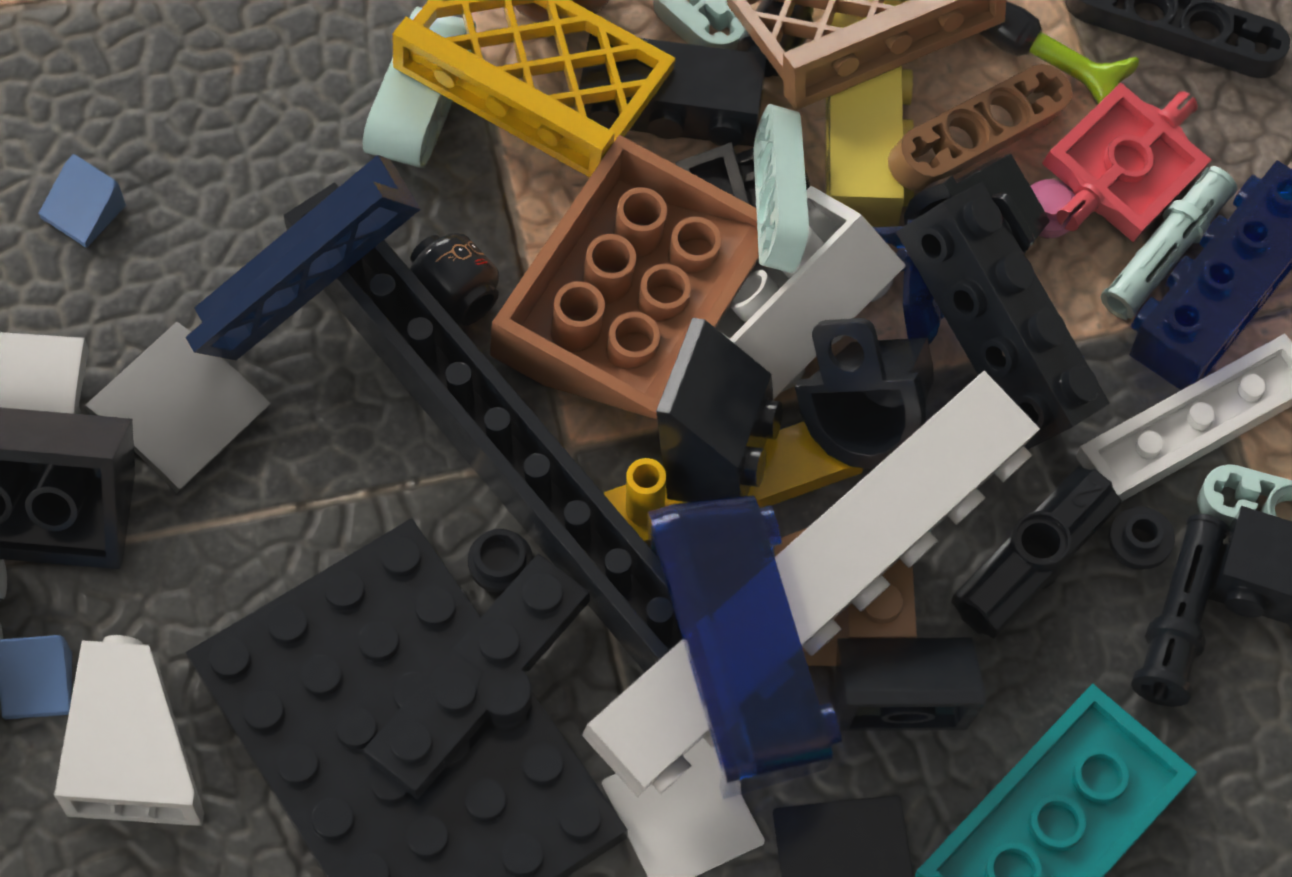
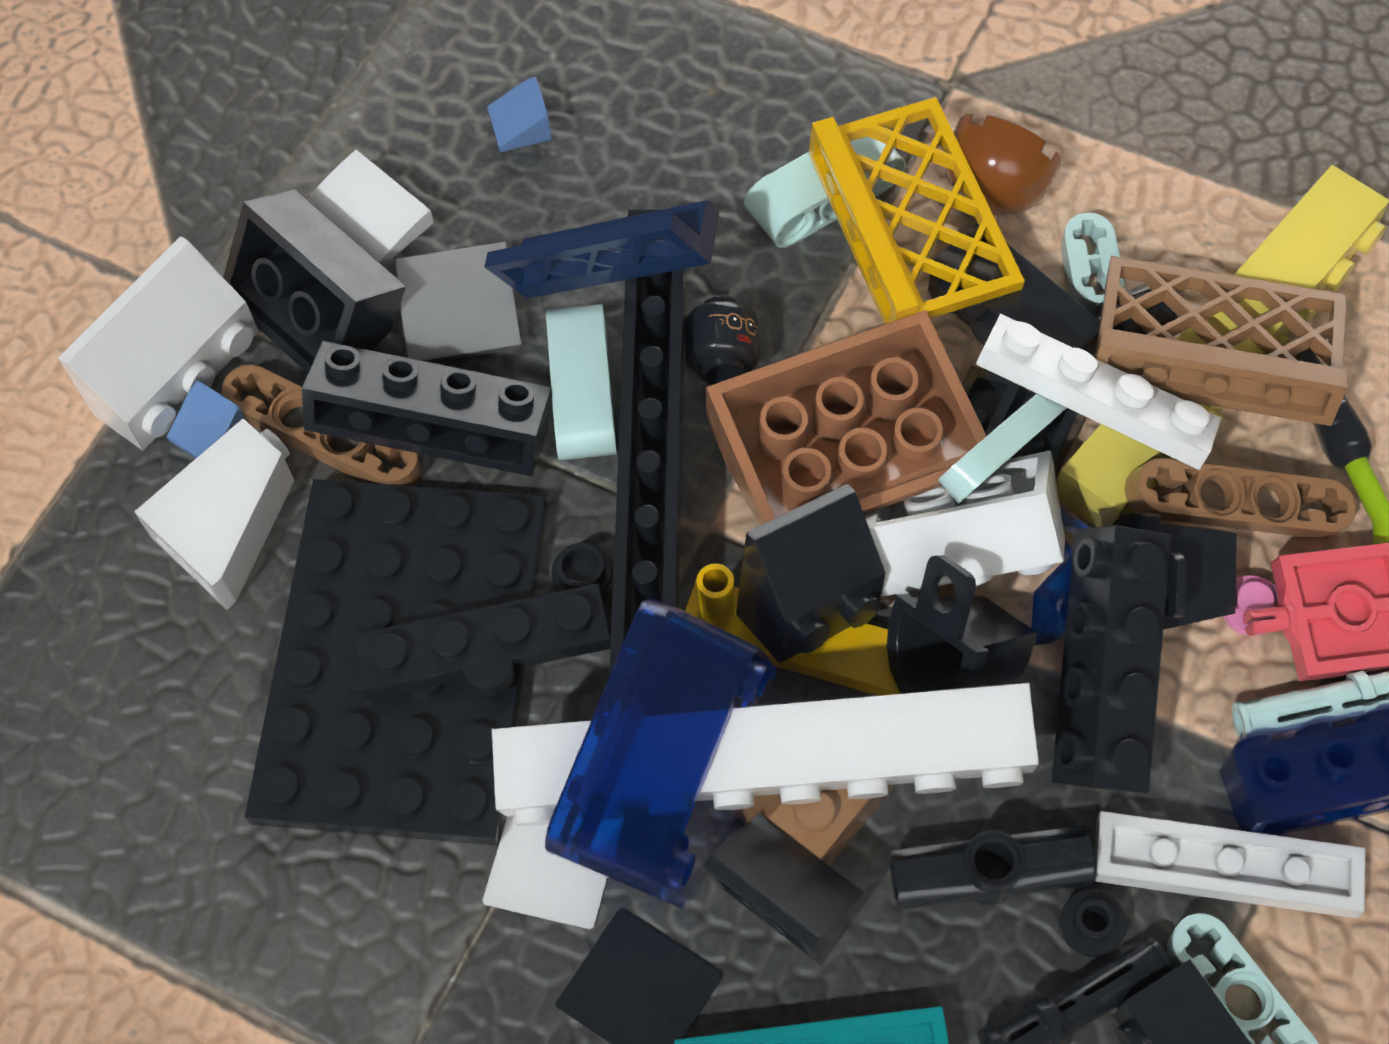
camera: 45 degrees right, 0 degrees up
(148, 593) = (287, 395): none -> medium nougat beam
(244, 514) = (426, 408): none -> black brick
(356, 398) = (580, 382): none -> light aqua beam
(817, 108) = (1100, 391): none -> white plate

